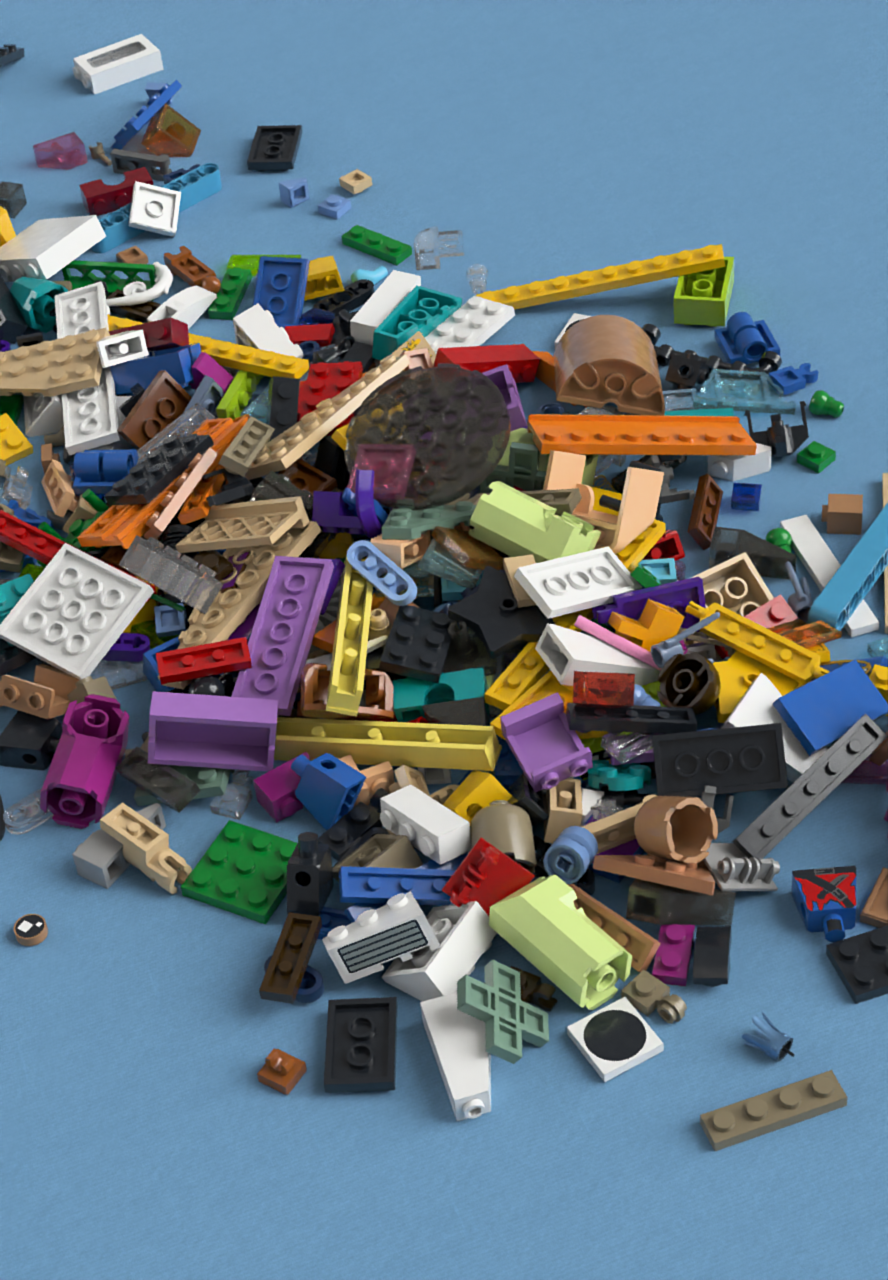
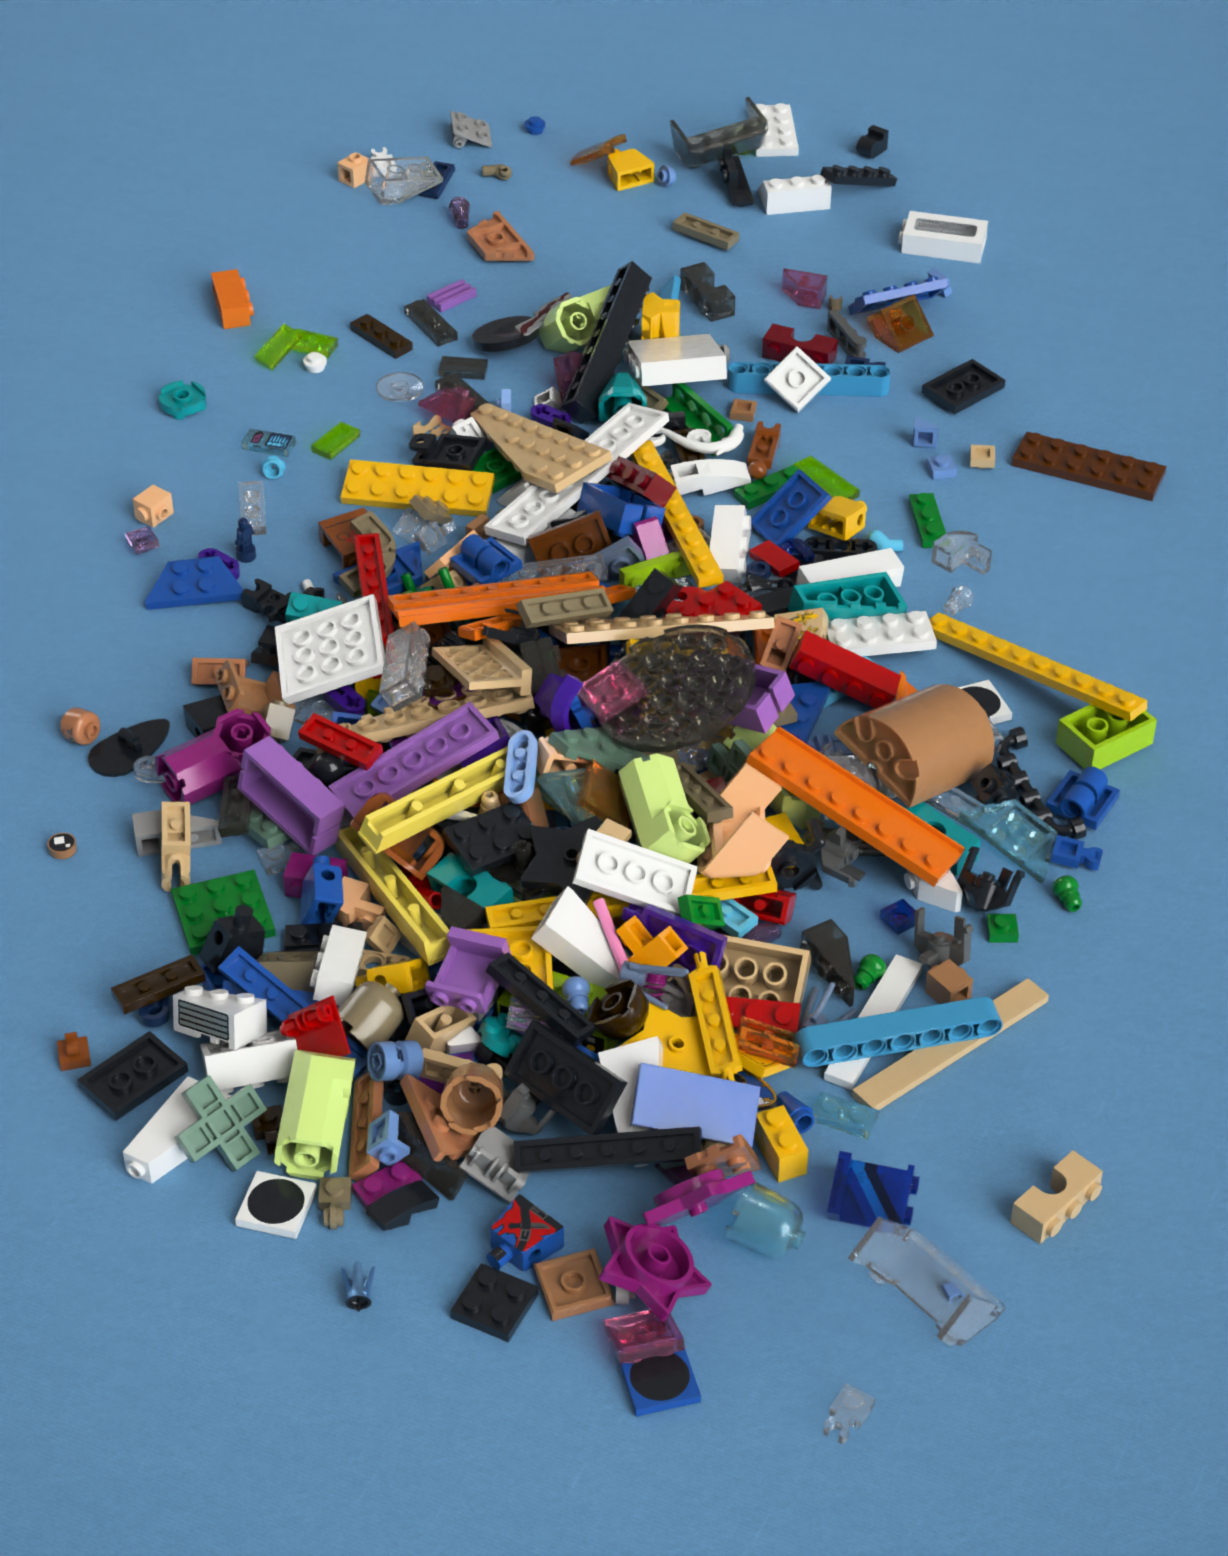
camera: 40 degrees right, 0 degrees up
(122, 347) = (597, 473): white slope -> none
(158, 470) = (497, 584): black plate -> none
(174, 501) = (466, 614): plate -> none
(434, 145) = (1089, 466): none -> reddish brown plate
(603, 688) = (548, 970): clear red torso -> none
(604, 808) = (469, 1051): clear plate -> none
(644, 914) = (384, 1141): none -> medium blue bracket
(705, 511) = (854, 902): reddish brown tile -> none
(773, 1110) = (301, 1333): dark tan plate -> none
(809, 492) = (942, 946): none -> dark grey piece

